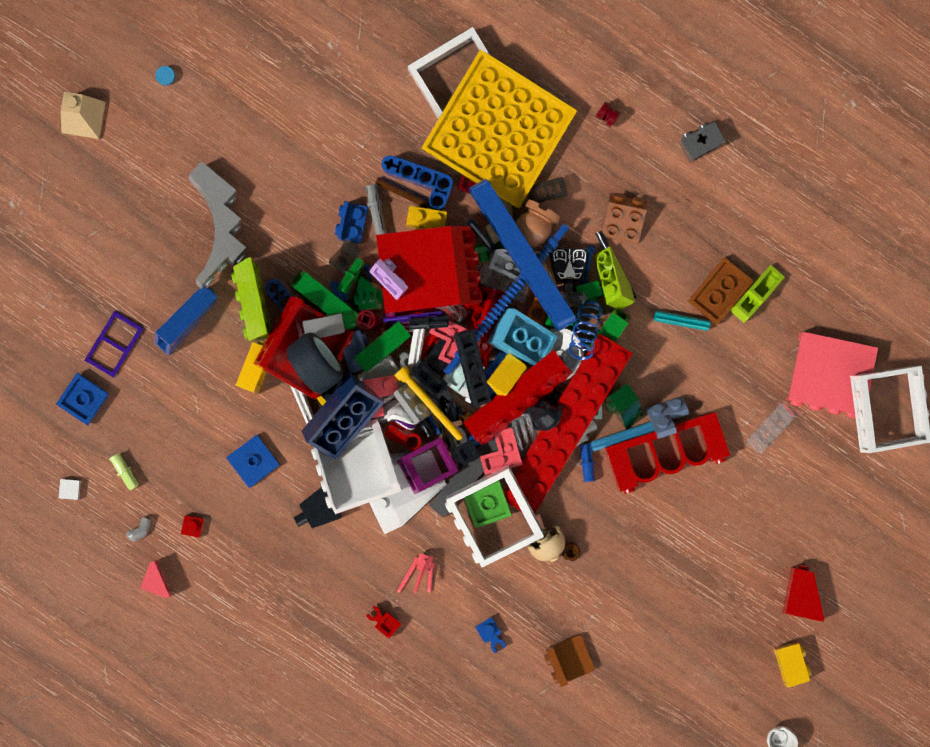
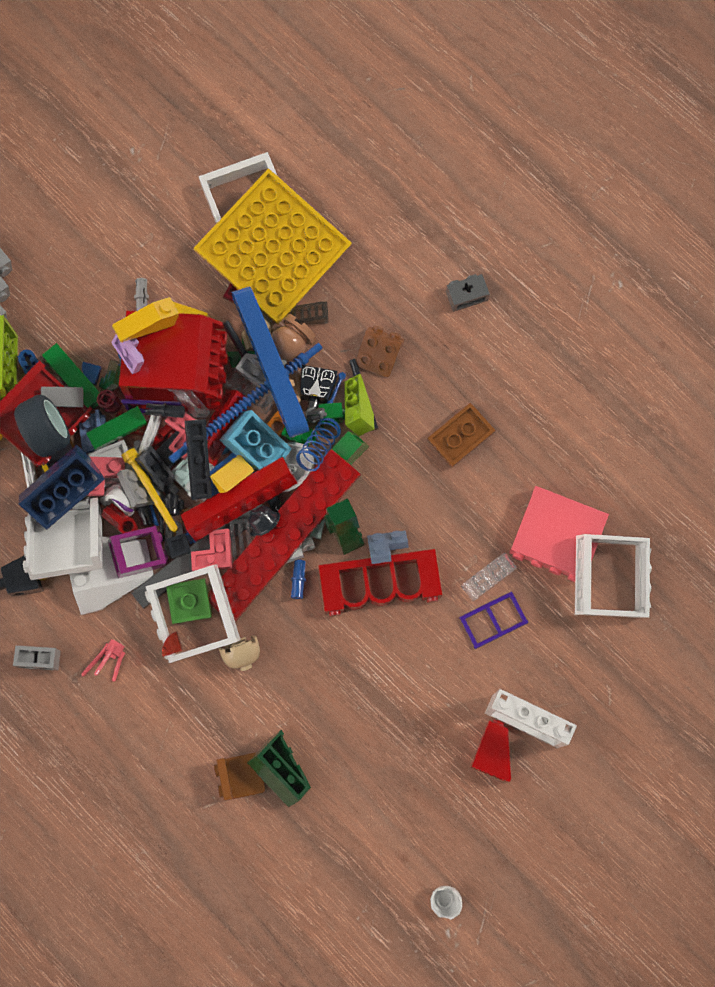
camera: 10 degrees right, 10 degrees down
(345, 256) = (102, 340): clear smoke bracket -> none
(351, 223) = (114, 309): blue bracket -> none
(351, 276) = (102, 359): green axle -> none
(353, 584) = (36, 658): none -> light grey brick
(386, 623) = (62, 704): red plate -> none
(401, 192) = (170, 292): reddish brown bar -> none
(402, 246) = (147, 320): none -> yellow slope
(415, 178) = (185, 280): blue beam -> none
(482, 550) = (172, 644): none -> clear red tile
(489, 631) = (165, 732): blue plate -> none
(576, 551) = (264, 660): reddish brown plate -> none
(605, 648) = (279, 770): none -> dark green wedge
(608, 114) = (381, 252): dark red wheel -> none
(622, 436) = (312, 563): dark azure axle -> none
(681, 320) = (418, 457): teal axle -> none
(757, 293) = (497, 443): lime slope -> none
(773, 457) = (487, 606): none -> dark purple window
(792, 664) = (470, 822): yellow brick -> none
(835, 562) = (530, 719): none -> white window

